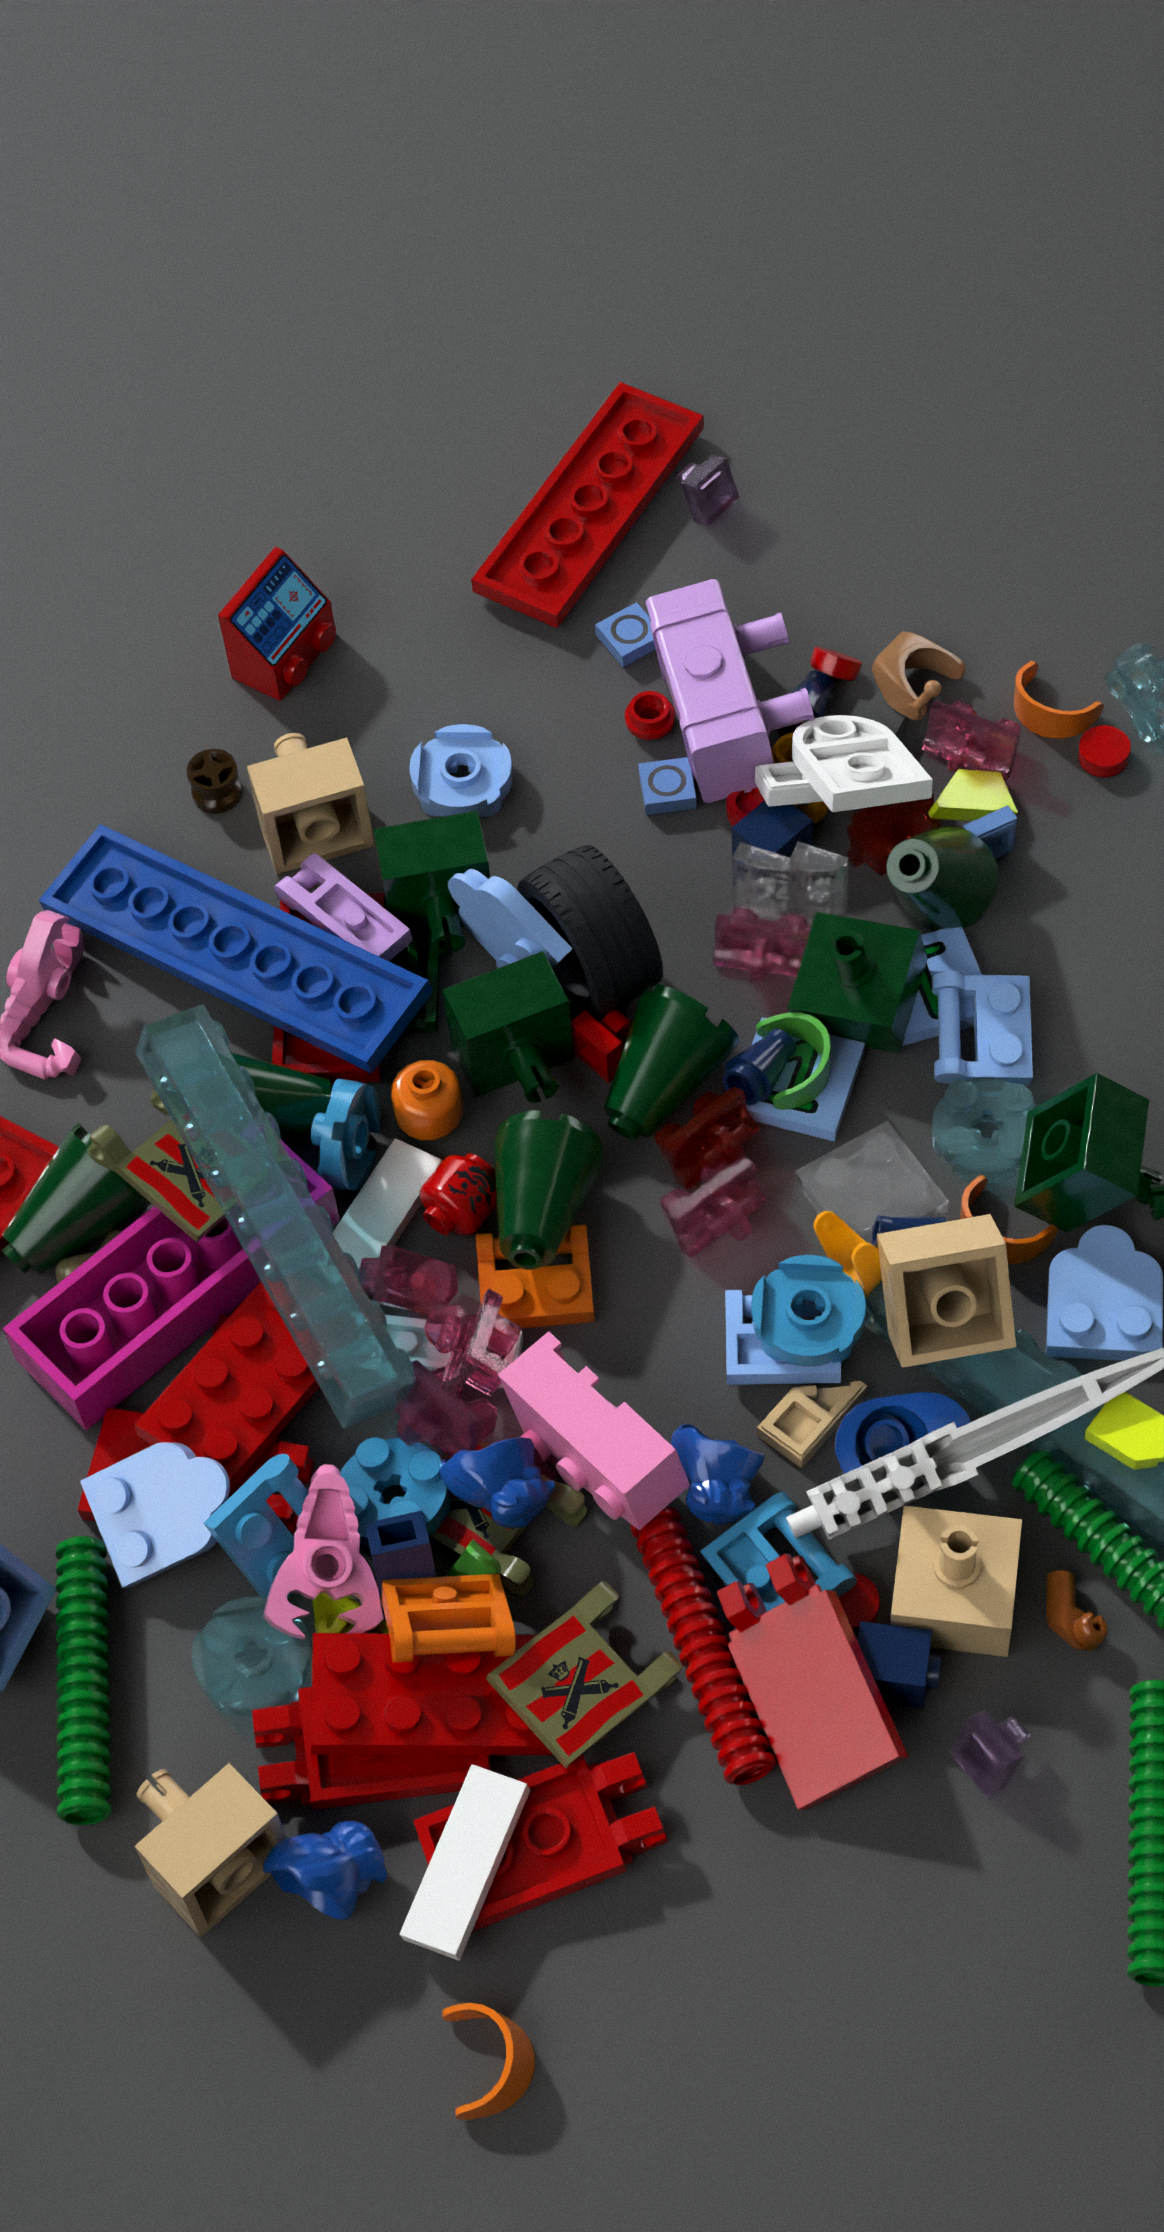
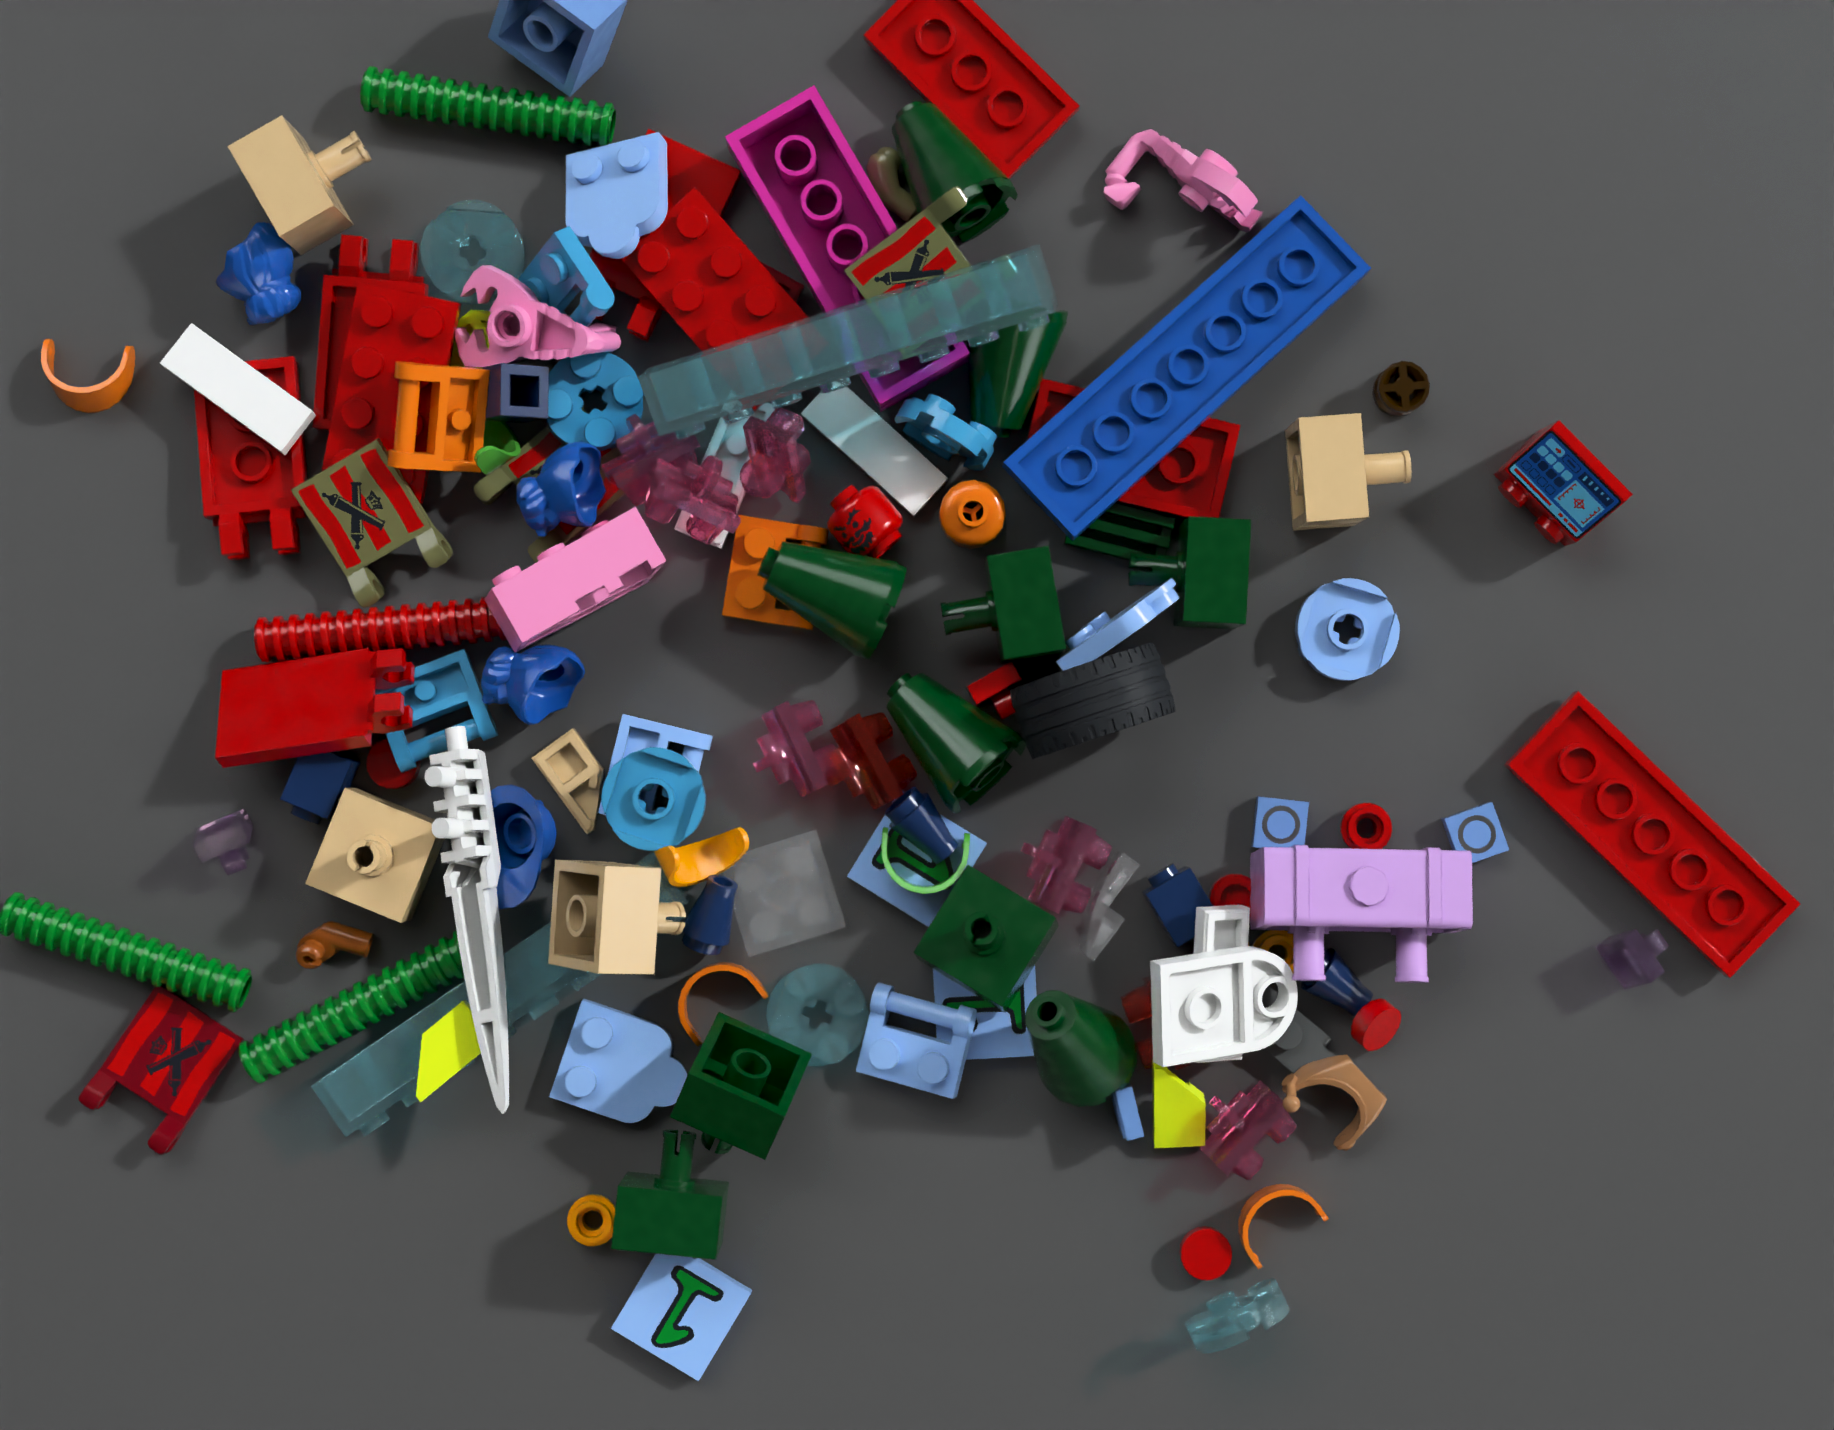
camera: 90 degrees right, 30 degrees up
(343, 909) = (1193, 478): lavender plate -> none

